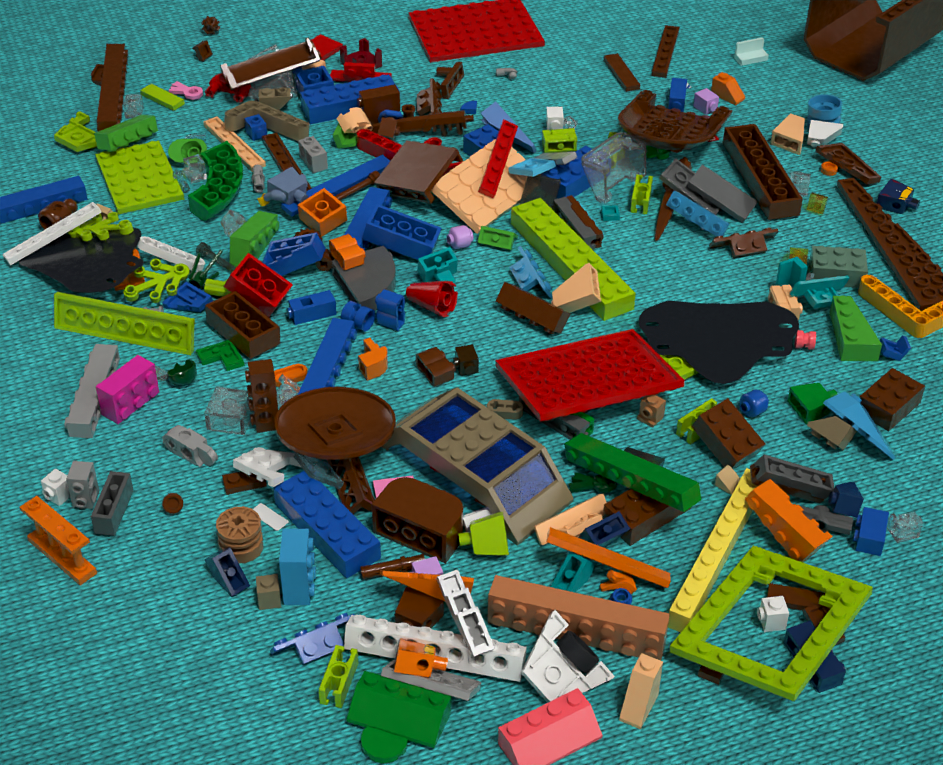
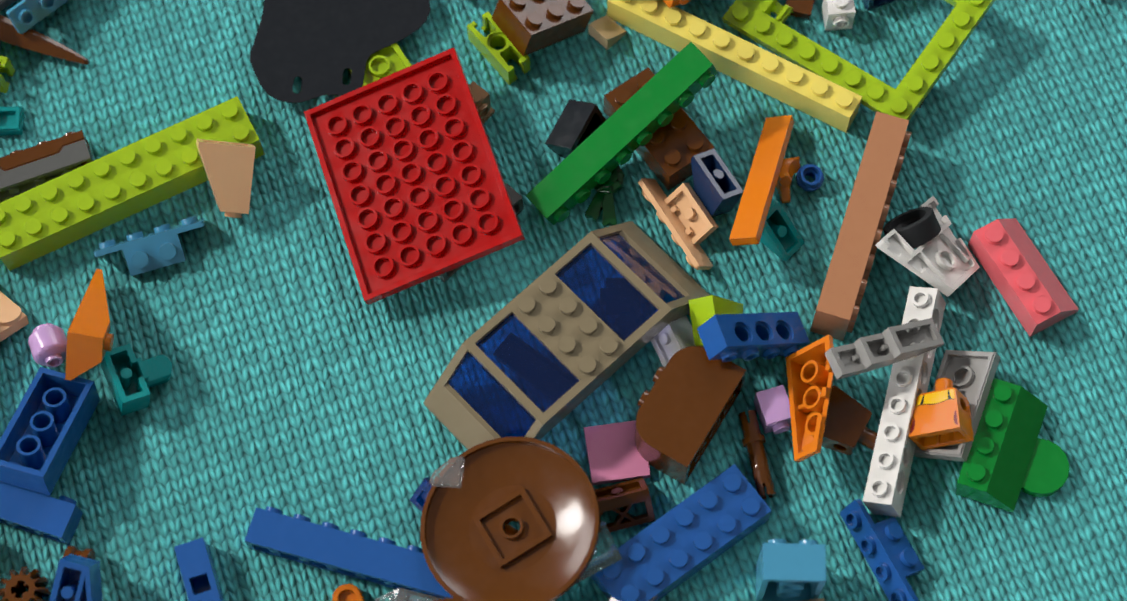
camera: 85 degrees left, 25 degrees up
(338, 676) = (945, 509): lime piece -> none
(346, 251) = (91, 516): orange brick -> none
(361, 315) = (233, 504): blue wheel -> none
(369, 279) = (136, 492): dark grey brick -> none
(370, 394) = (449, 473): none -> clear tile
(373, 361) = (338, 474): orange brick -> none
(390, 309) = (234, 451): blue brick -> none
(434, 296) = (199, 391): red cone -> none
(435, 366) = (358, 391): reddish brown brick -> none
(466, 360) = (350, 345): dark brown brick -> none
(467, 239) = (89, 331): none -> orange wedge
(472, 512) = (752, 335): none -> blue brick
(496, 237) = (52, 289): bright green panel -> none
(506, 408) = (446, 297): dark tan beam -> none
(534, 308) = (244, 244): reddish brown brick -> none
(641, 691) = (972, 162): light nougat slope -> none

